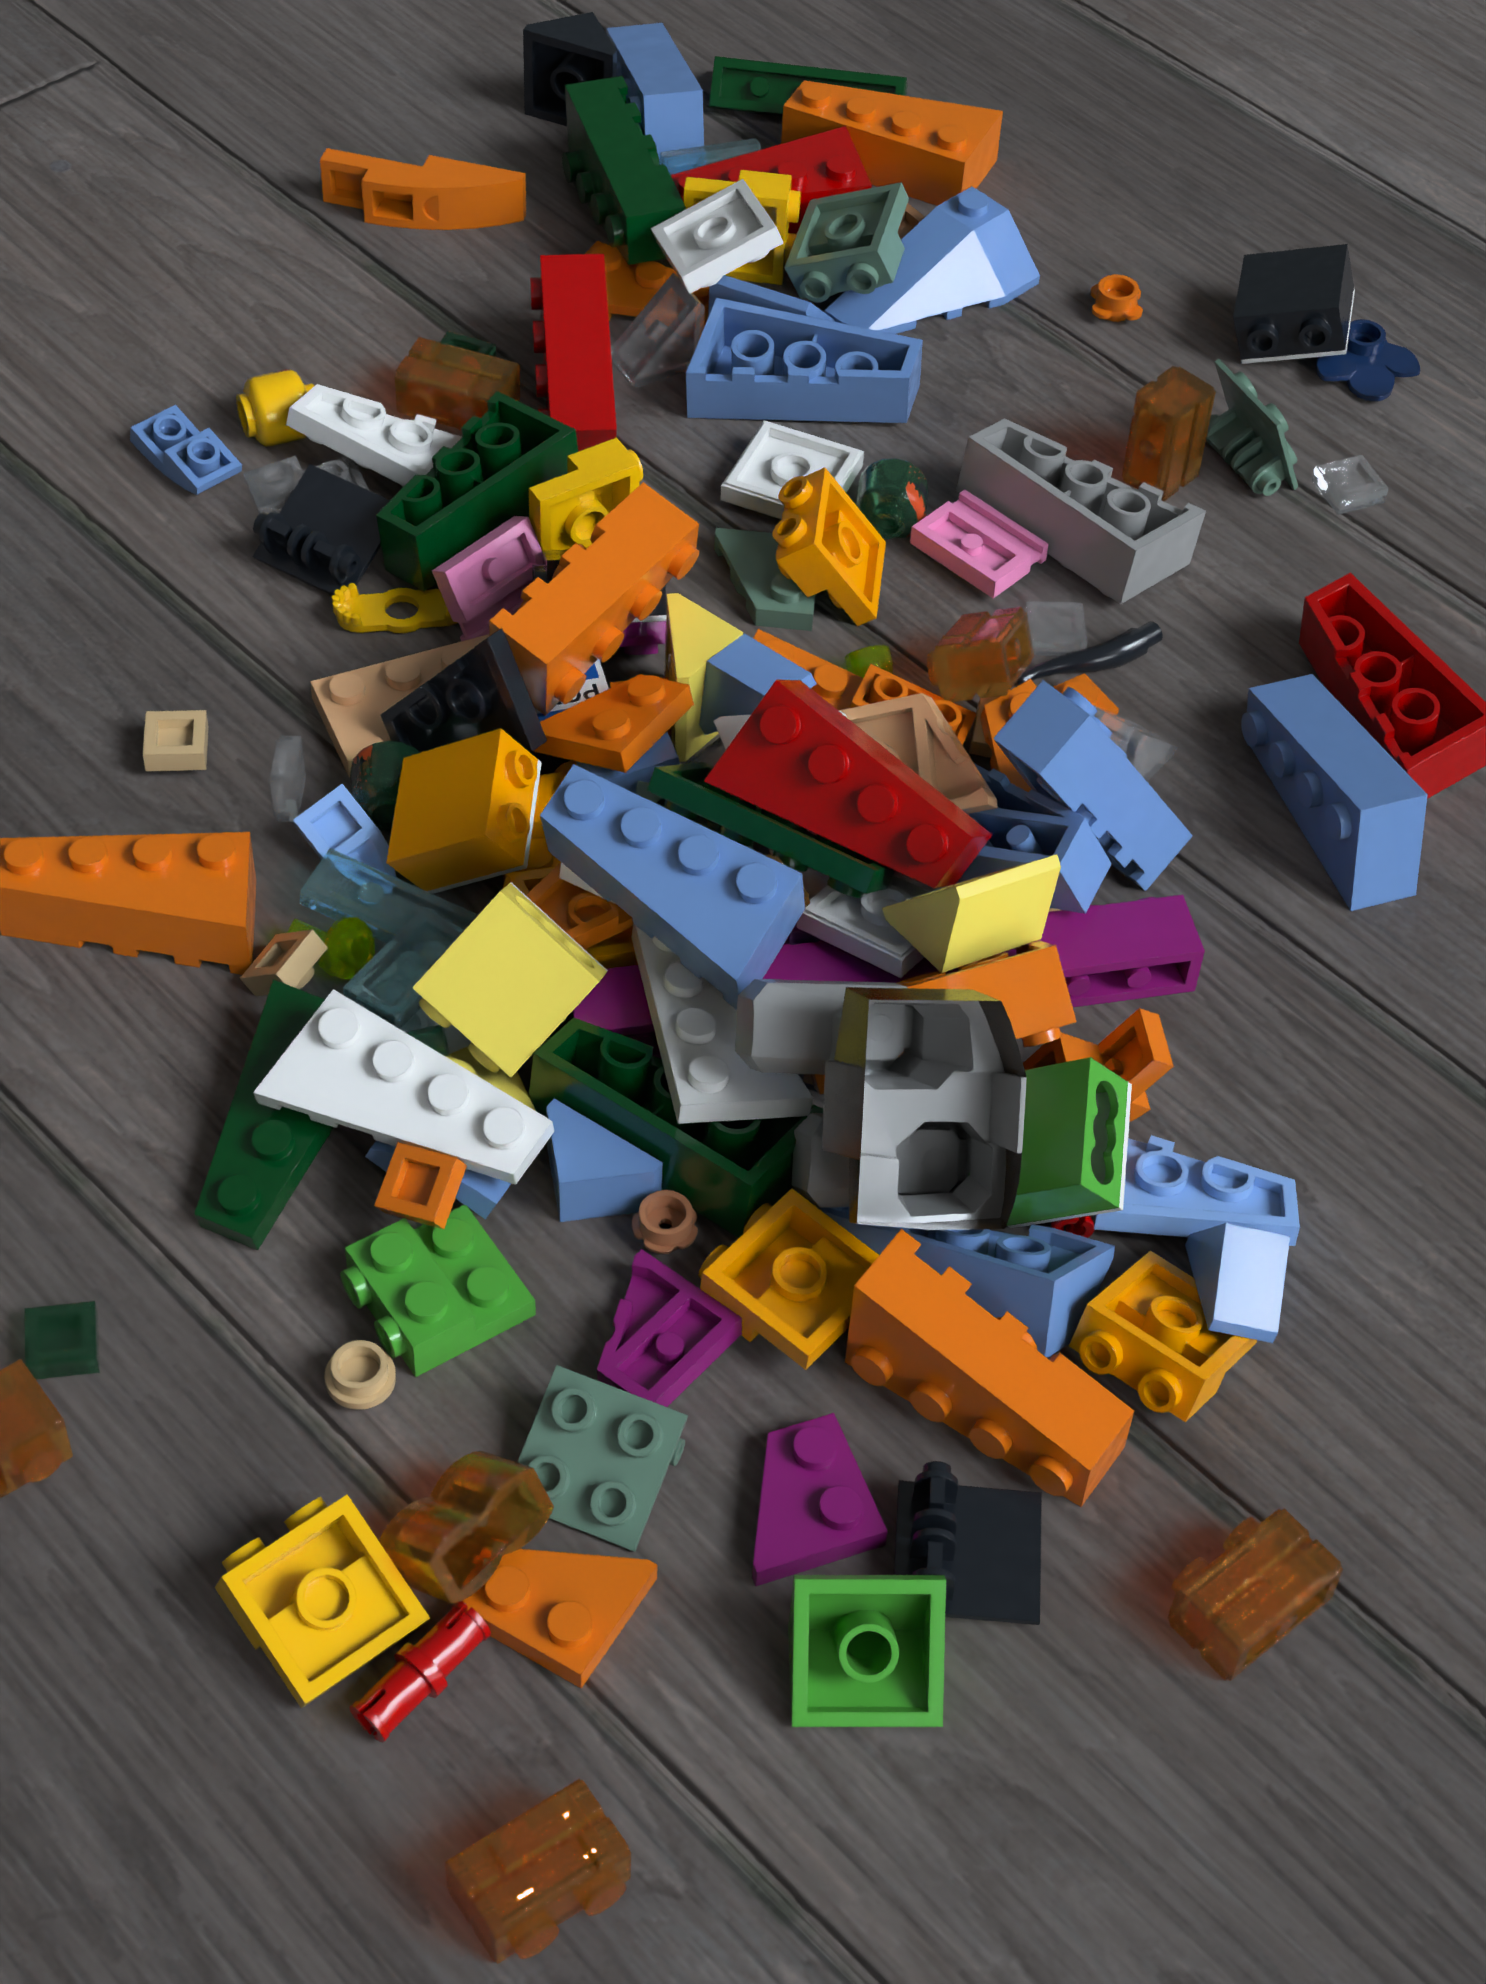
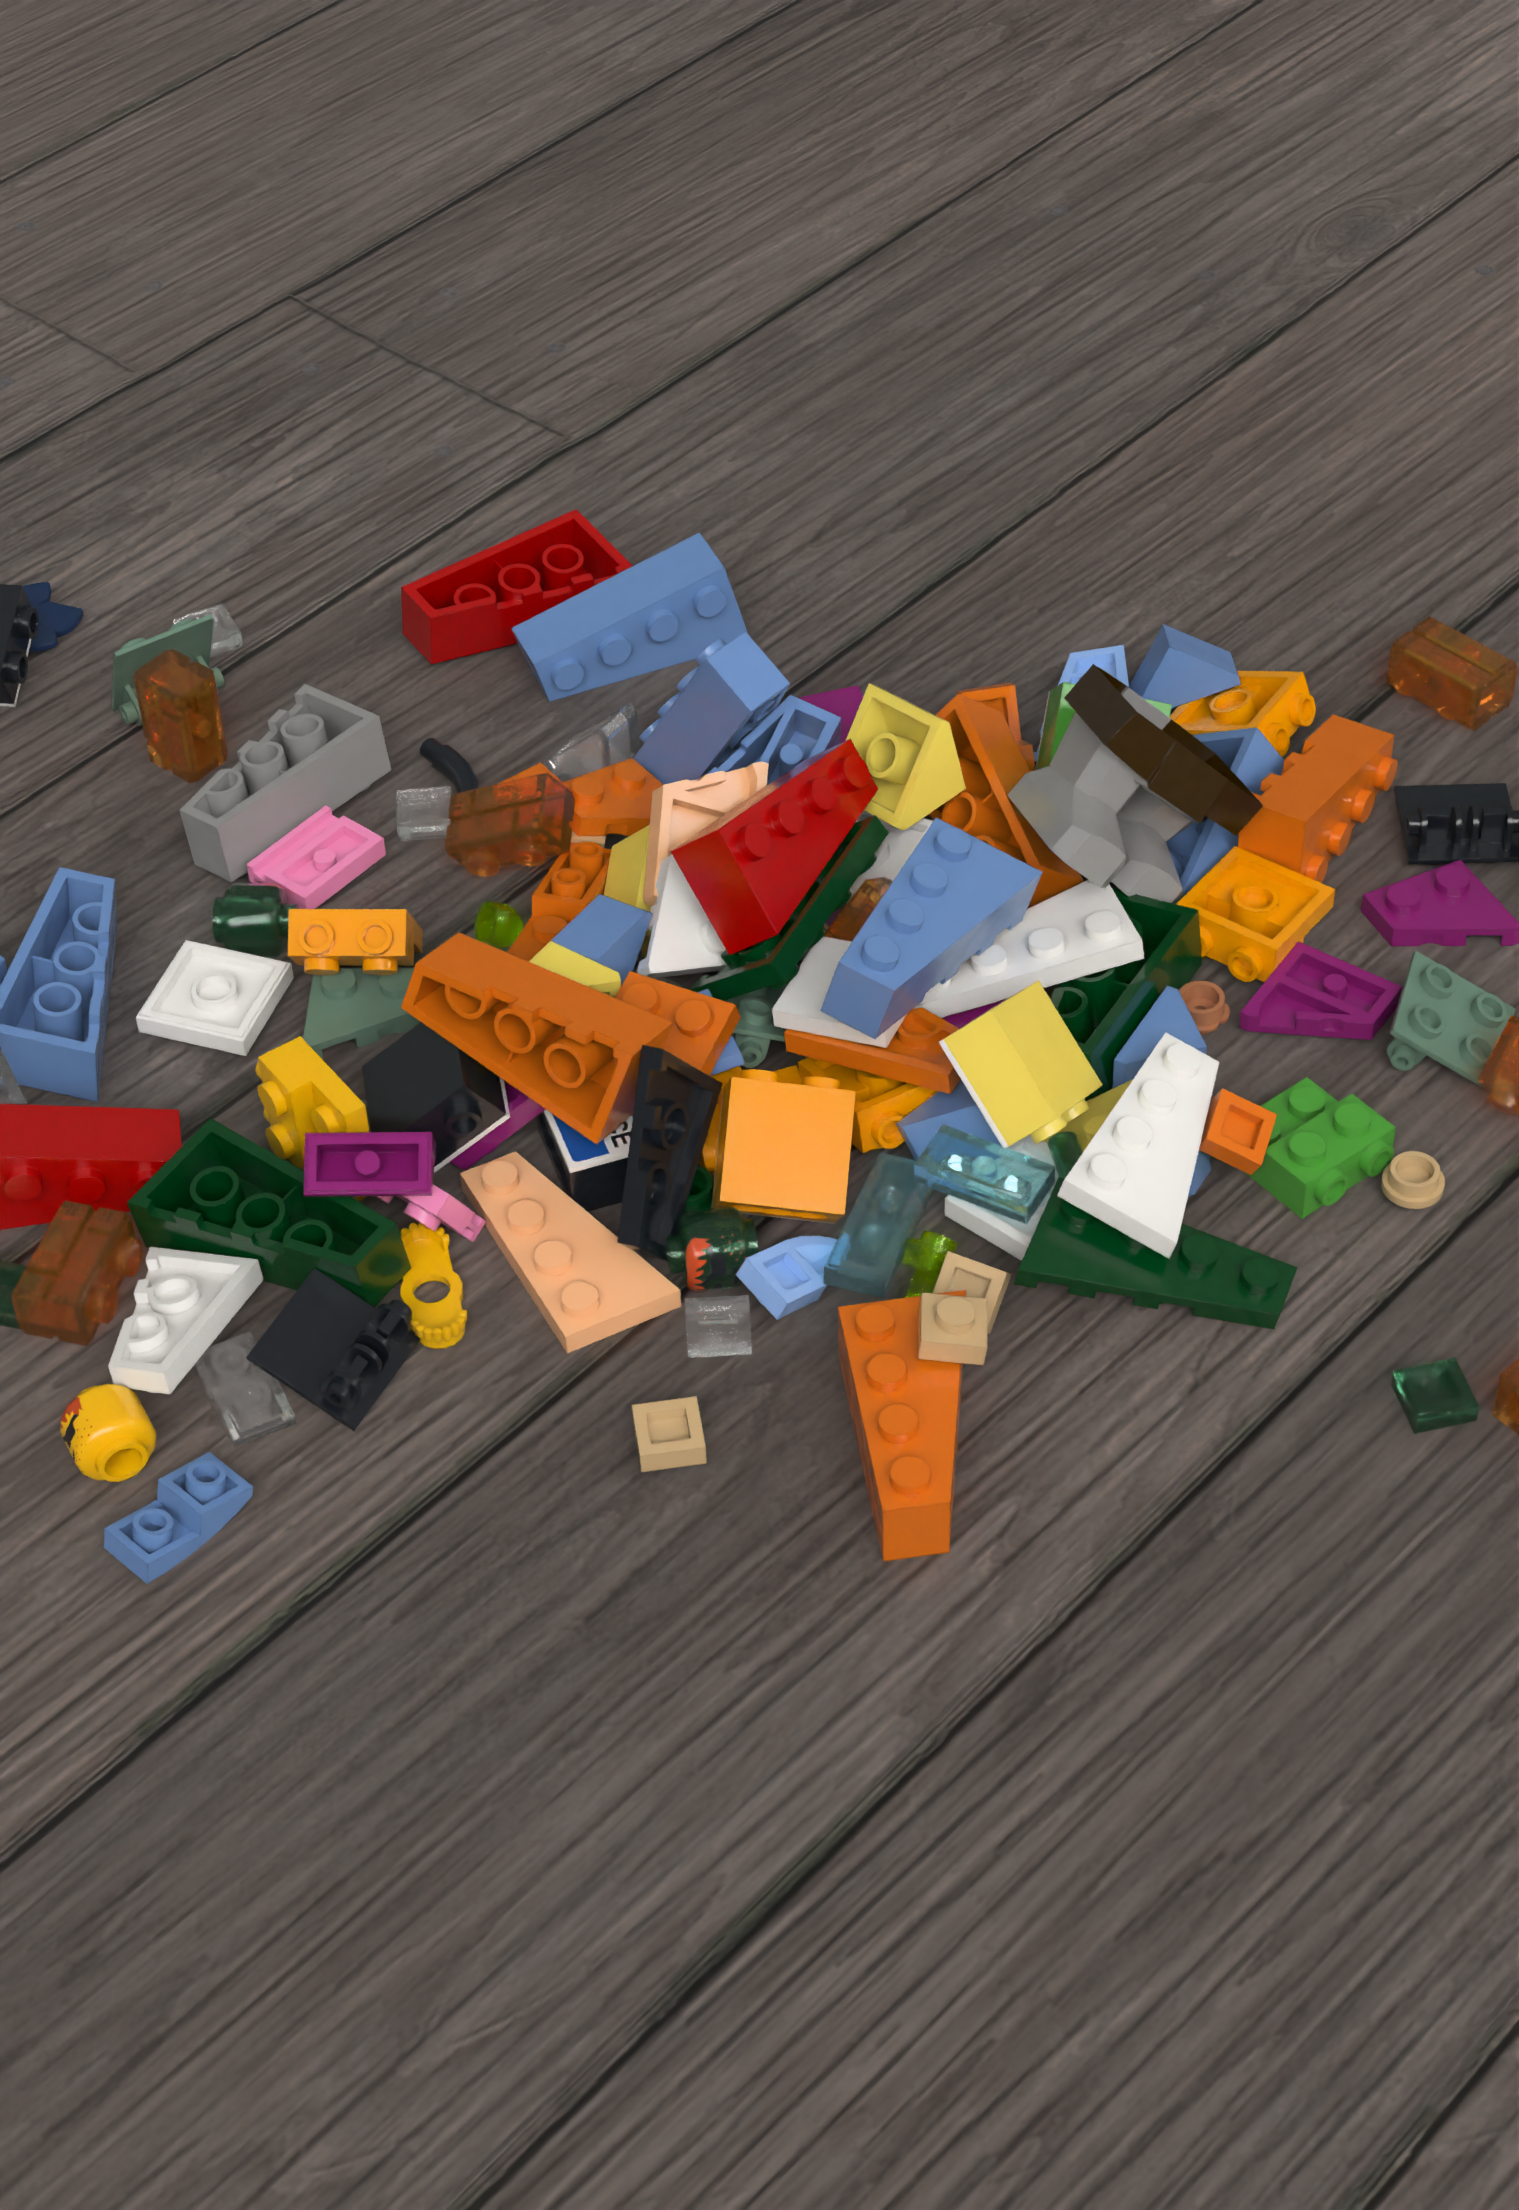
camera: 90 degrees left, 5 degrees down
(181, 898) = (952, 1328): none -> tan plate
(485, 515) = (369, 1164): none -> magenta slope

